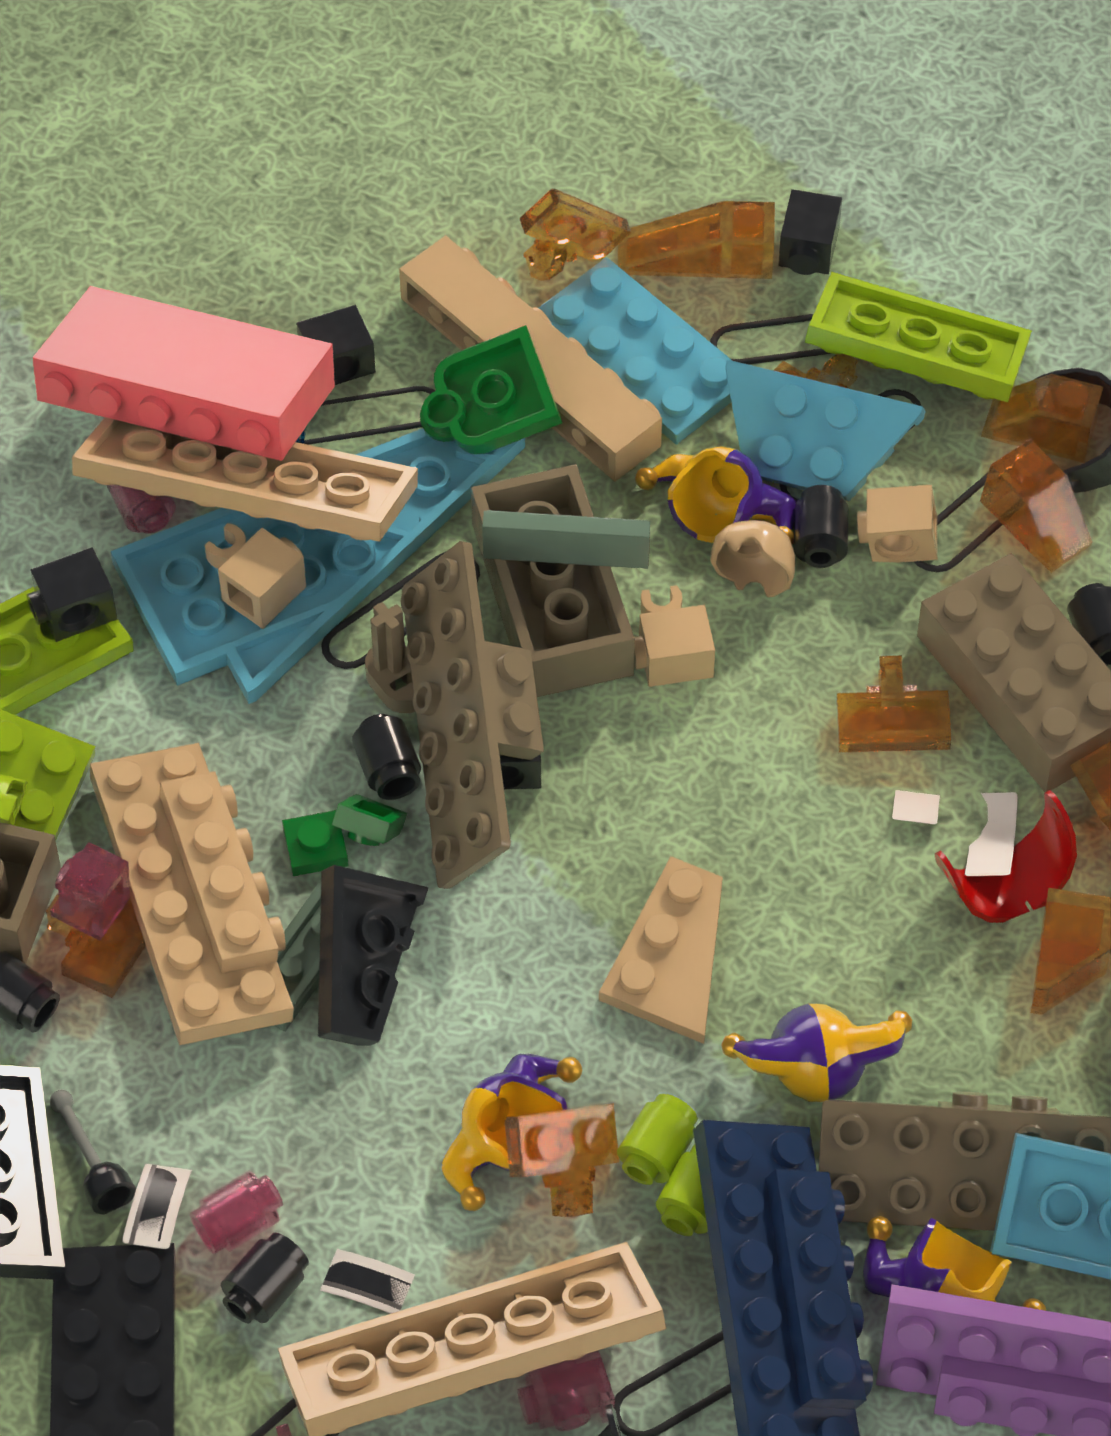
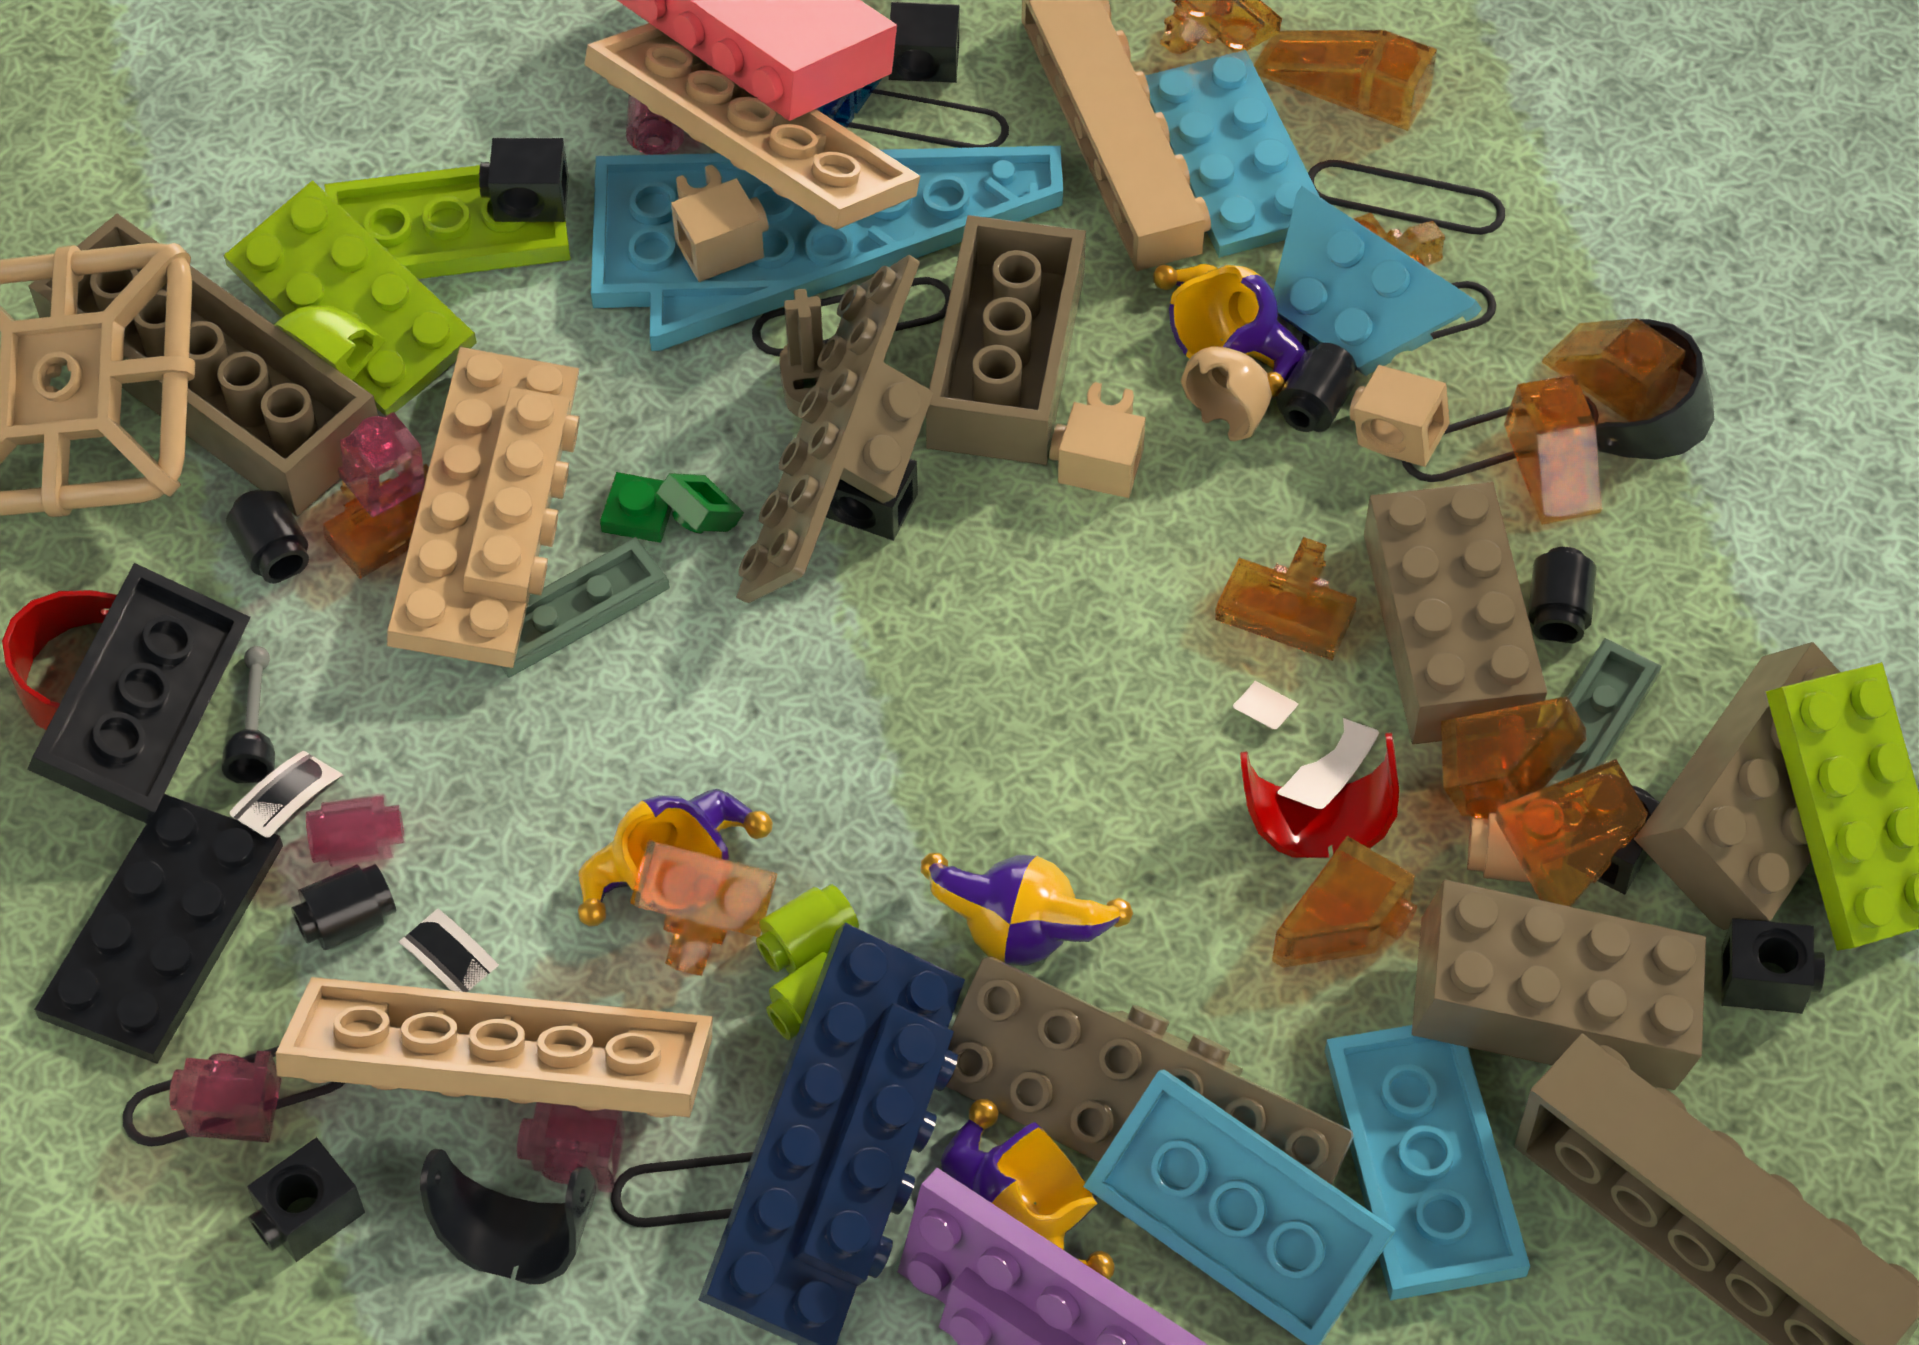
camera: 25 degrees right, 0 degrees up
(361, 943) = (618, 623): black wing -> none
(387, 756) = (751, 449): black brick -> none
(490, 395) = (1042, 135): green plate -> none
(566, 539) = (1026, 295): sand green tile -> none
(670, 953) = (926, 753): tan wing -> none
(810, 232) = (1467, 96): black brick -> none
(918, 337) = (1521, 236): lime plate -> none

